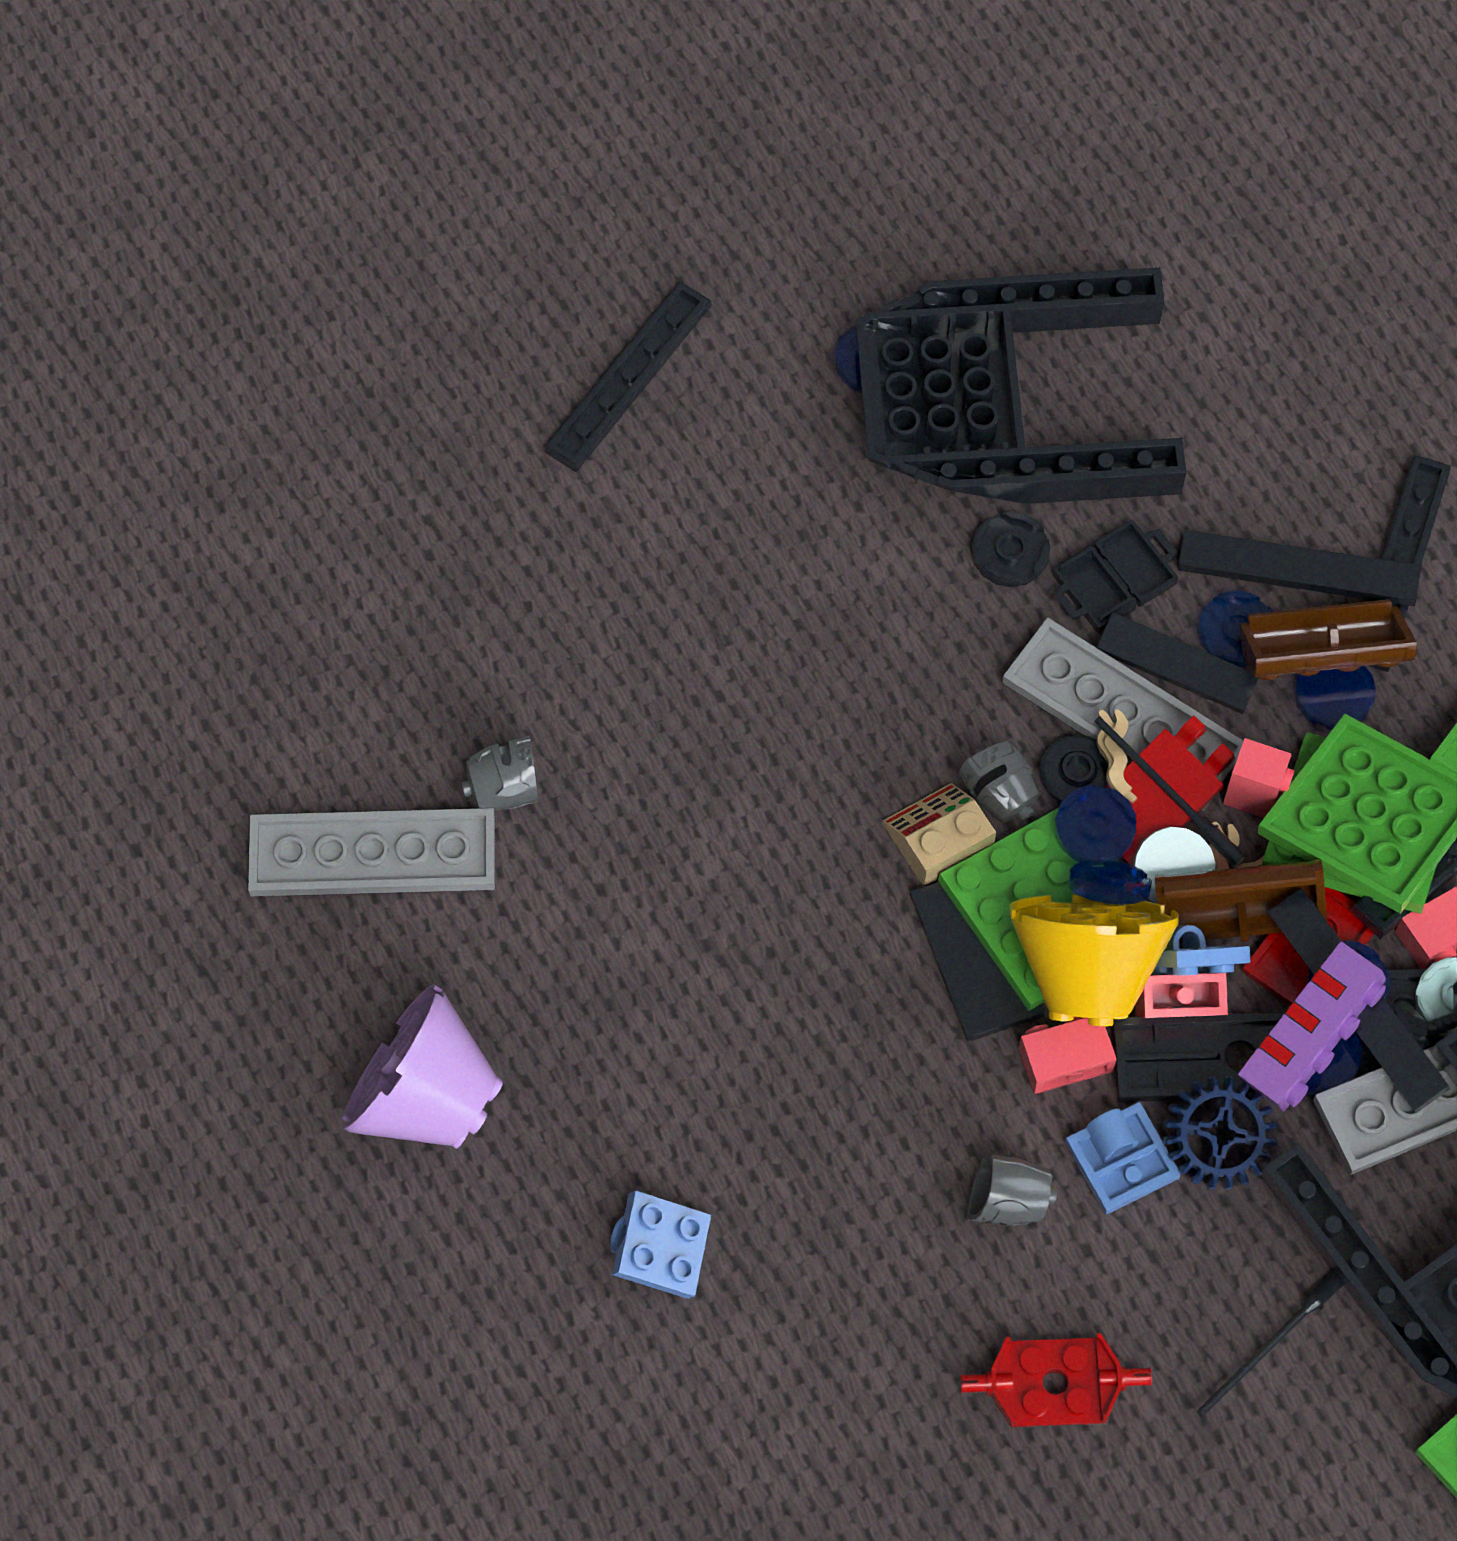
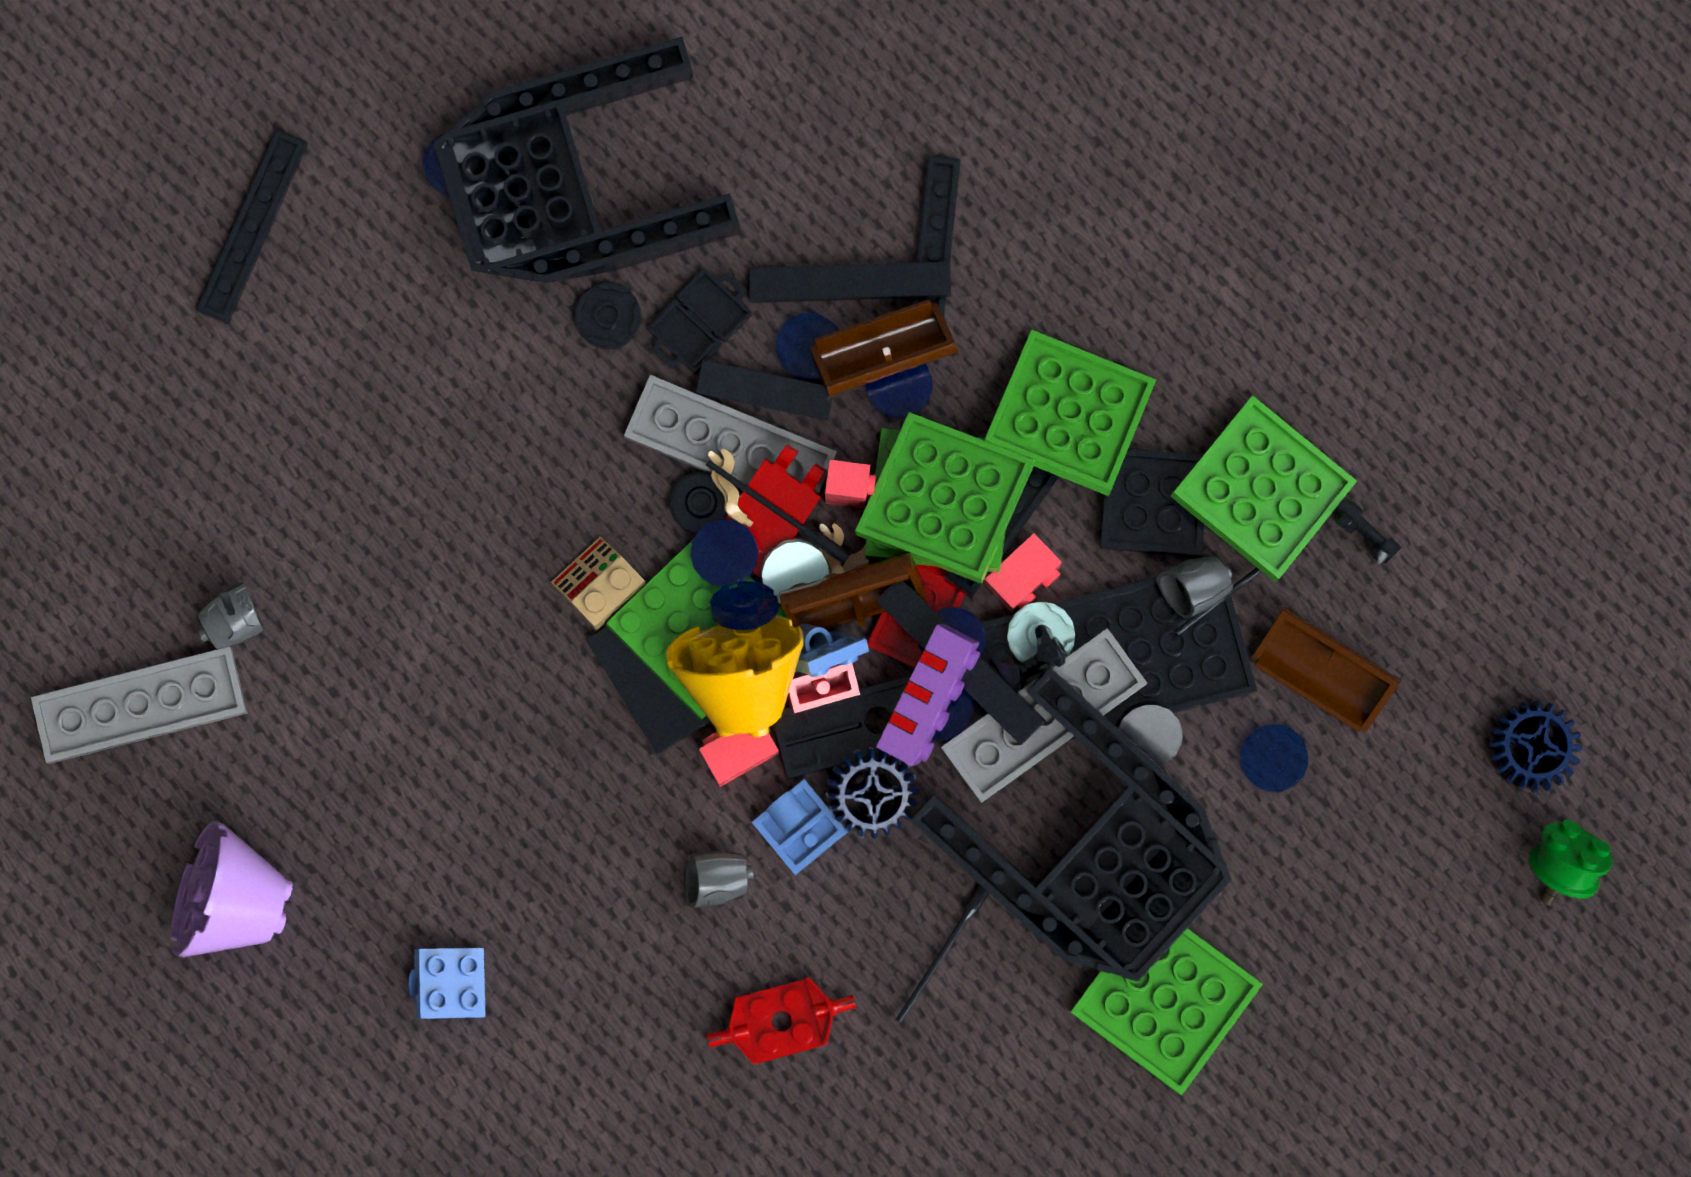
camera: 15 degrees left, 15 degrees up
(1001, 782) = (641, 532): dark grey helmet -> none

